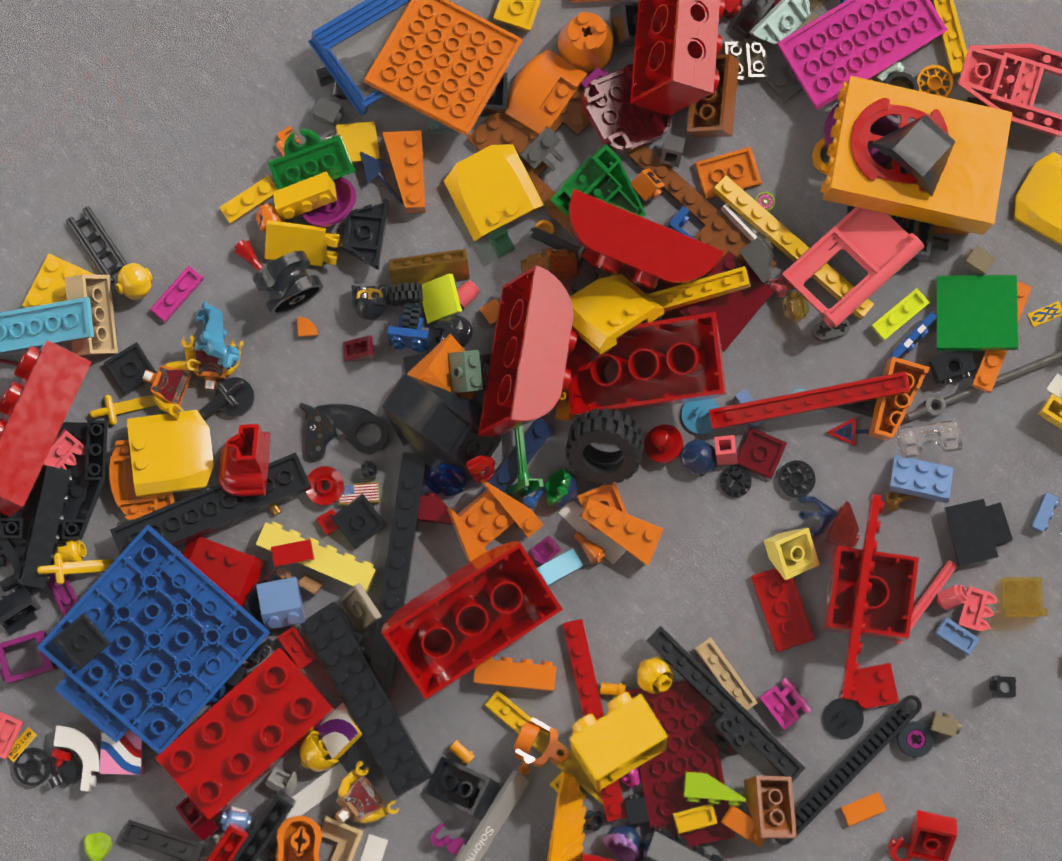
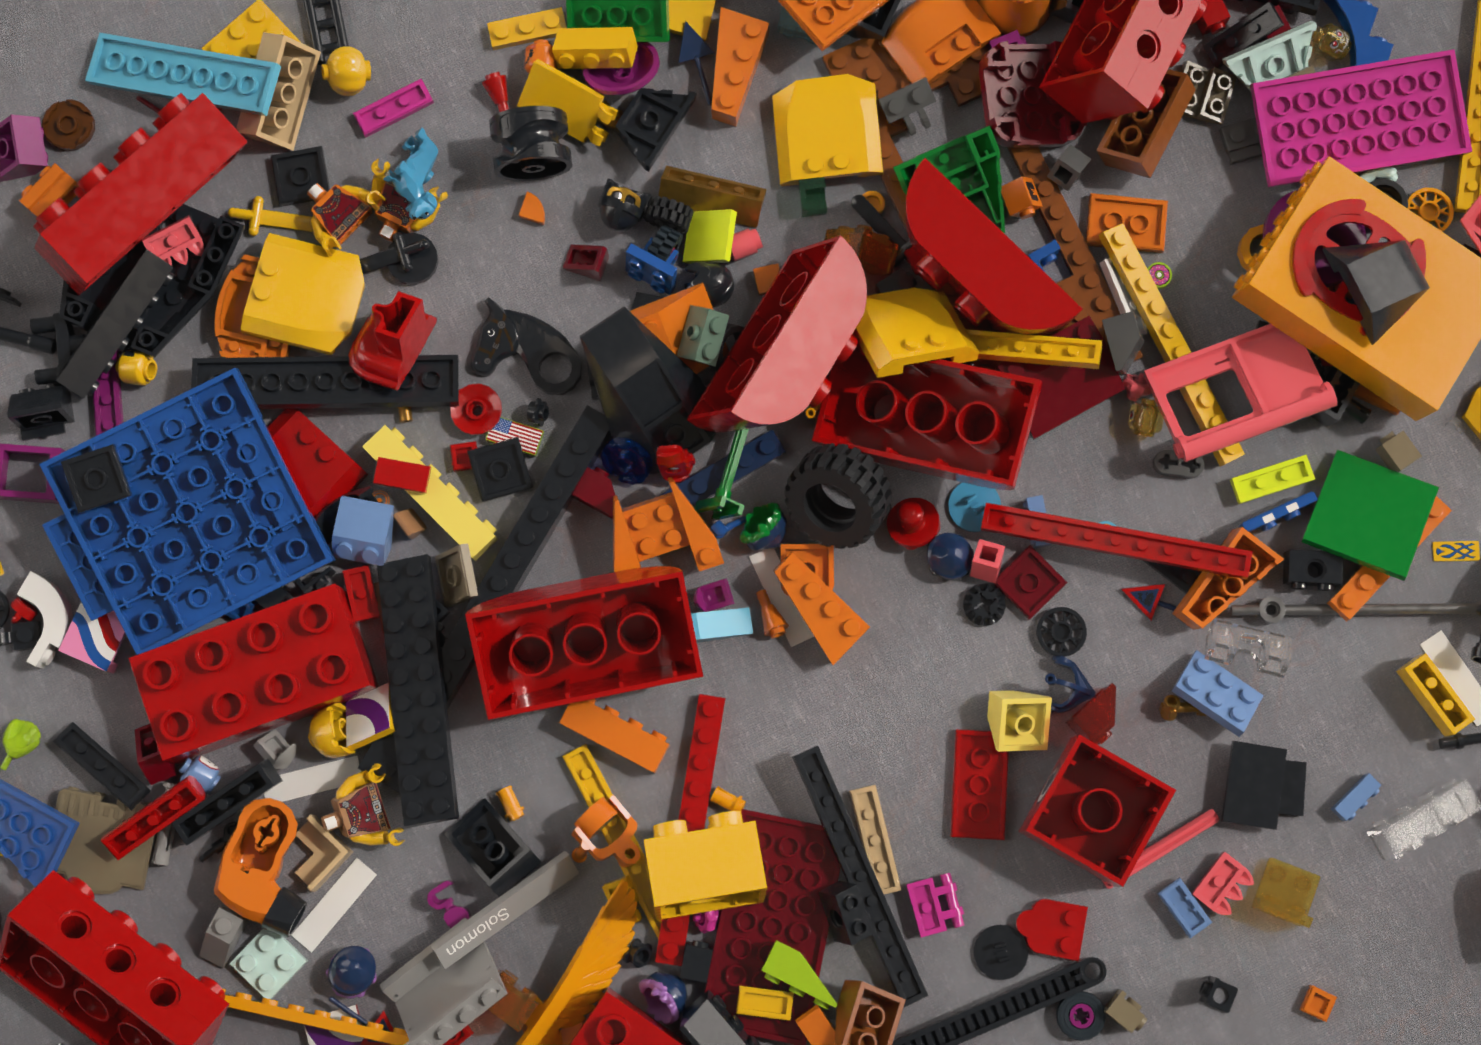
camera: 20 degrees right, 0 degrees up
(73, 567) = (114, 382): yellow sword -> none
(563, 411) = (805, 434): orange tile -> none
(655, 673) = (787, 801): yellow plant -> none
(860, 606) = (1077, 822): red plate -> none
(952, 597) = (1198, 856): coral brick -> none

